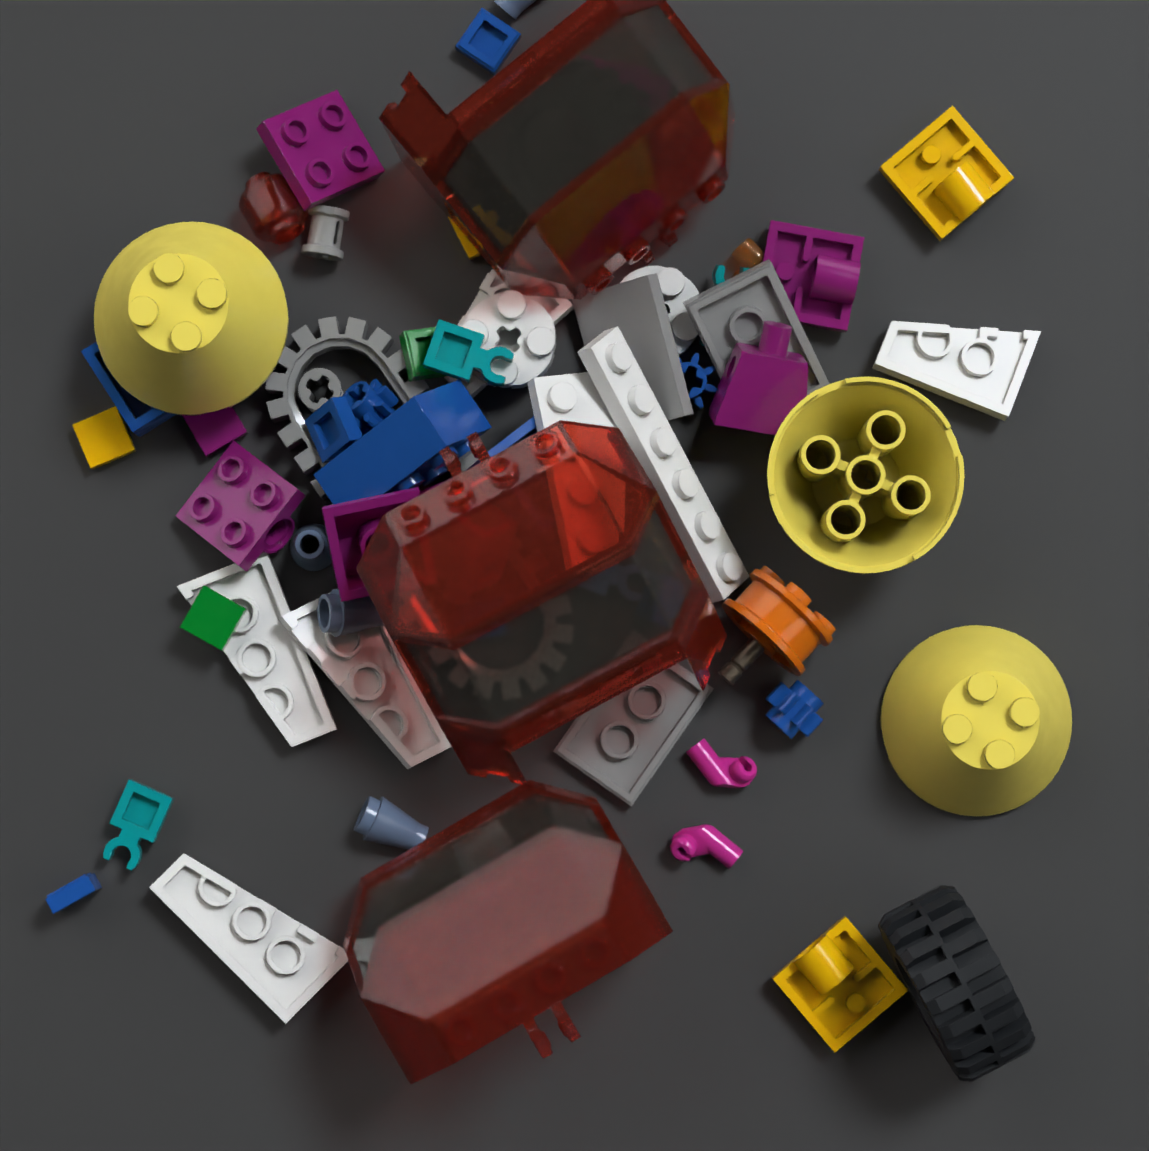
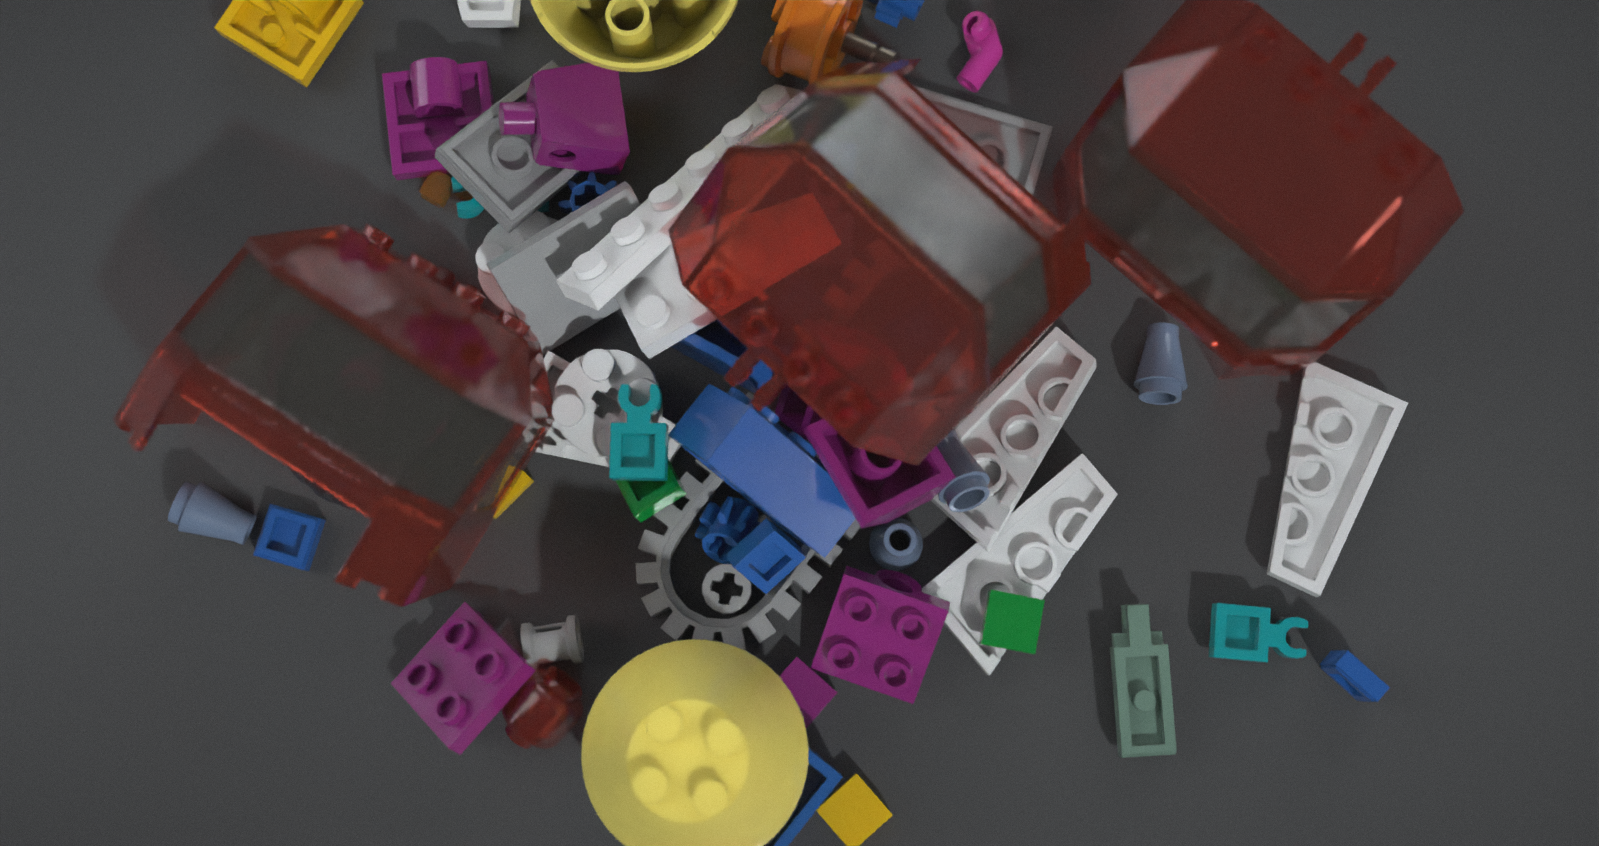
camera: 110 degrees left, 5 degrees down
(124, 711) = (1141, 687): none -> sand green hinge
(704, 840) = (1060, 45): dark pink arm -> none

